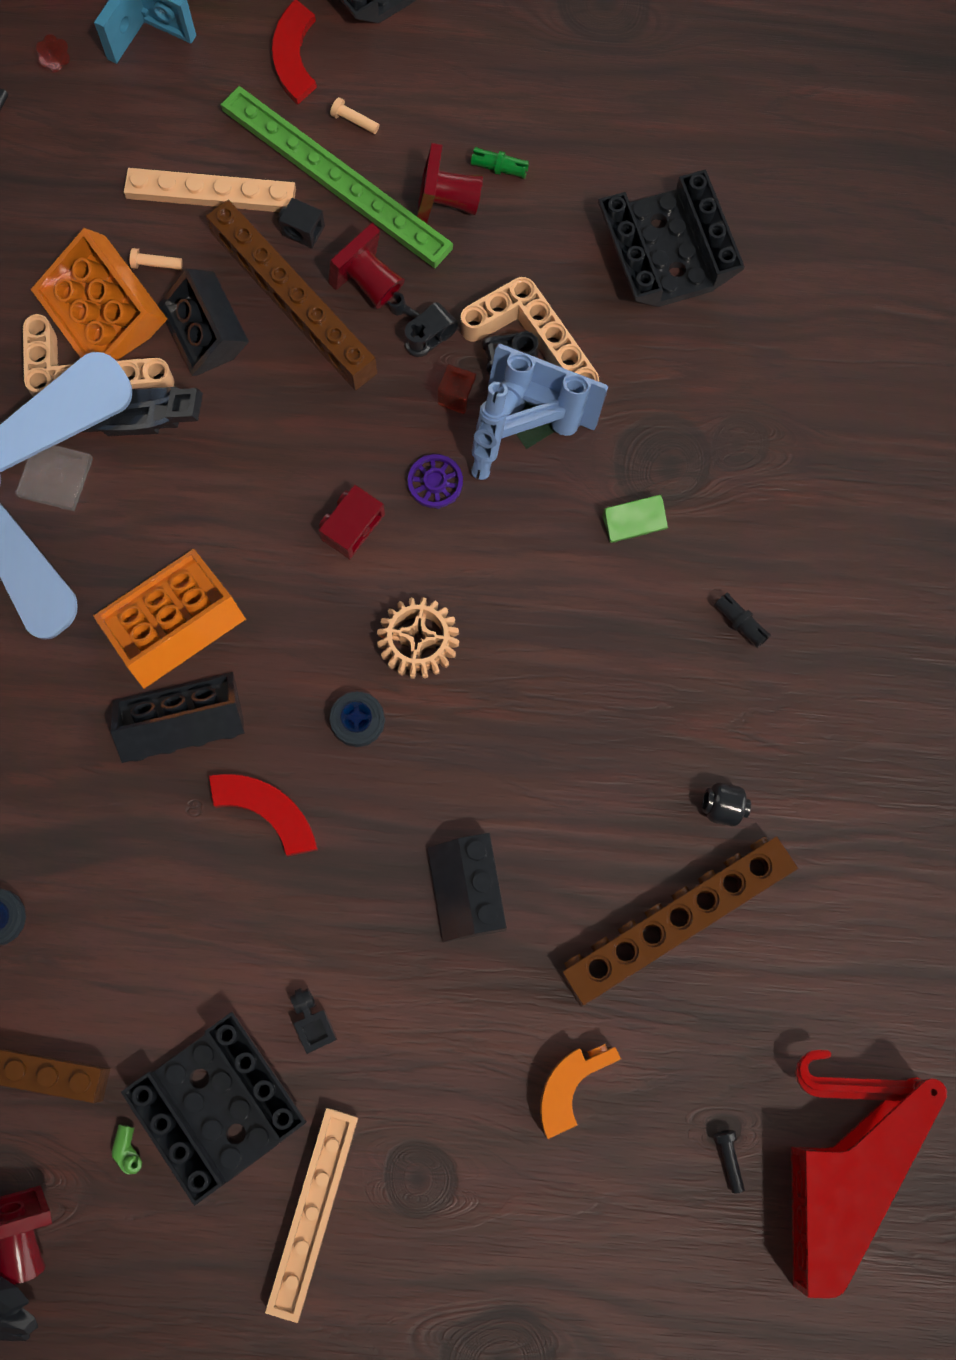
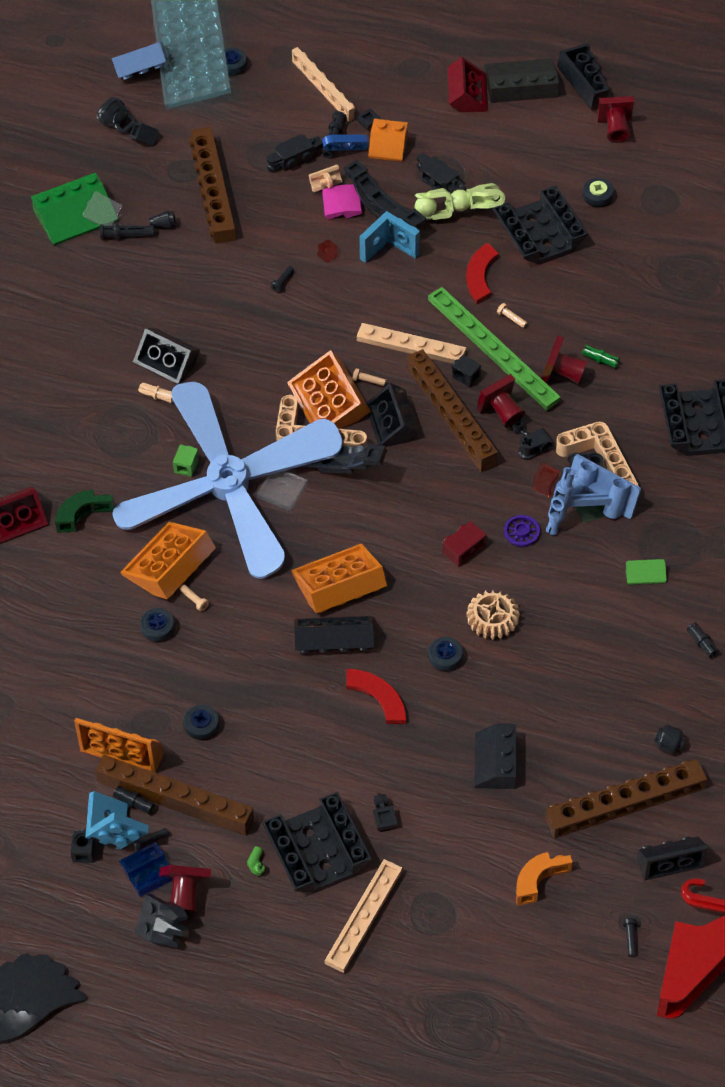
camera: 15 degrees right, 20 degrees down
(769, 1011) = (672, 857): none -> black slope

